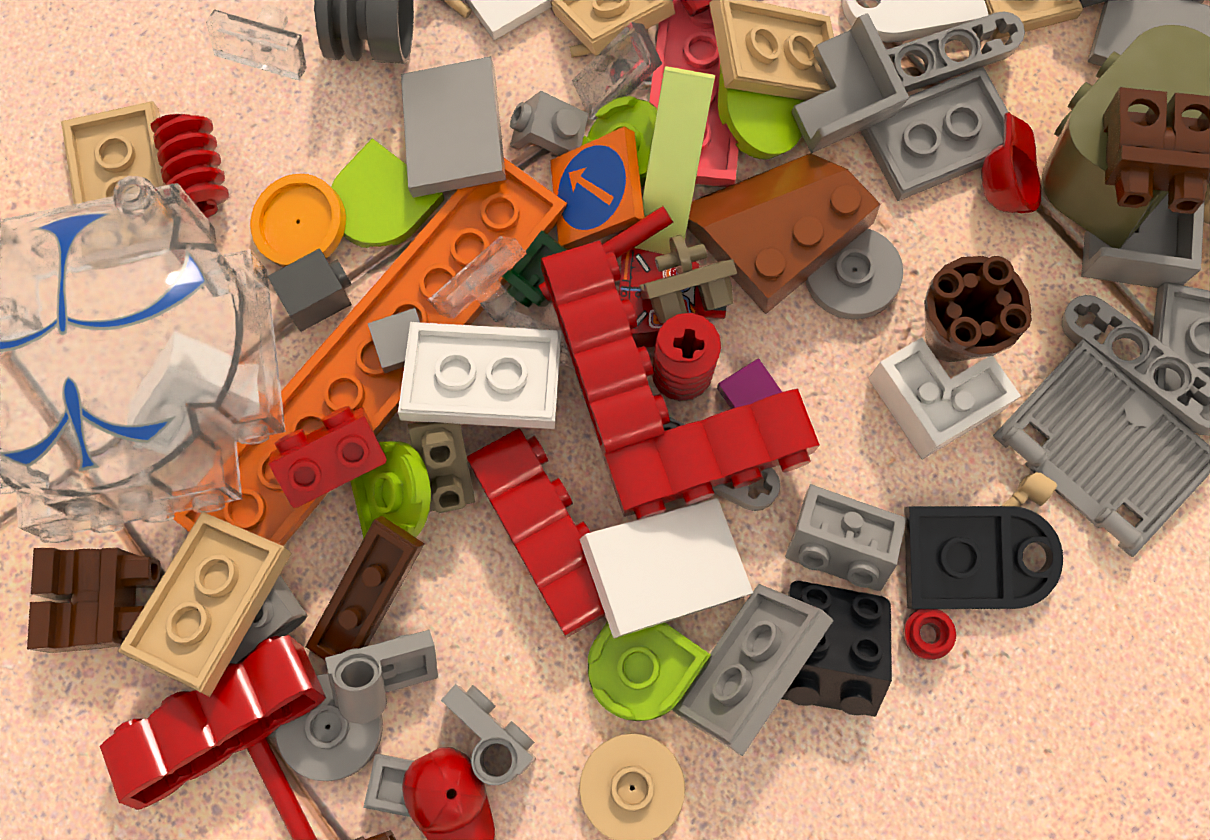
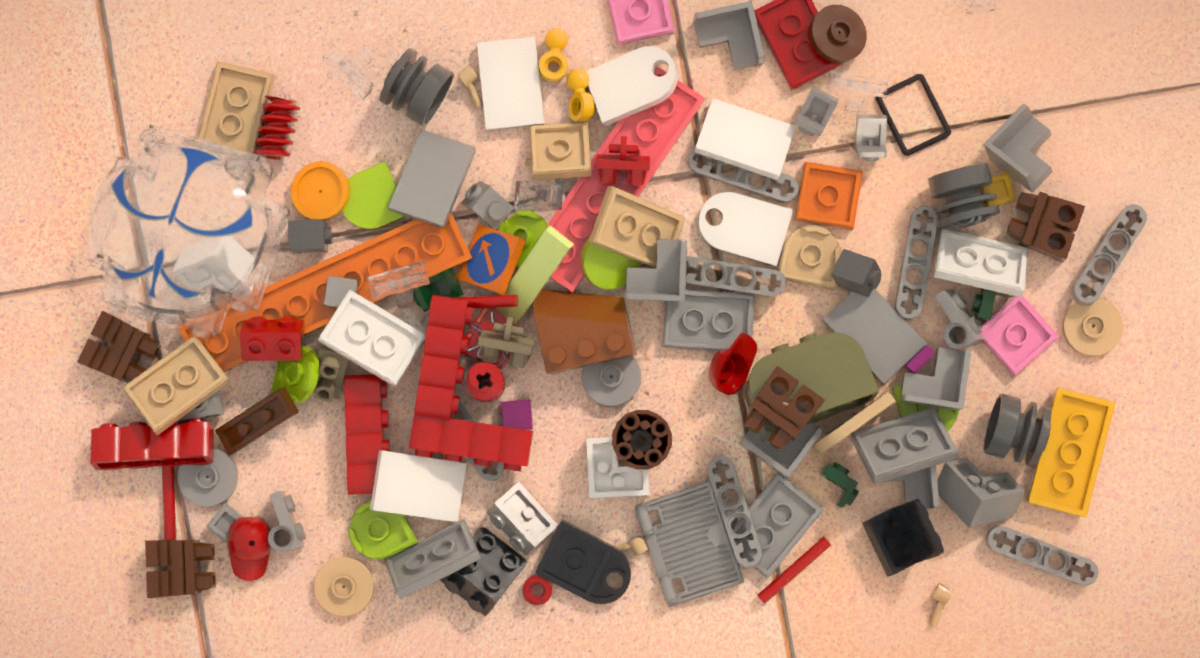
camera: 30 degrees right, 10 degrees up
(366, 674) = (248, 462): light grey plate -> none

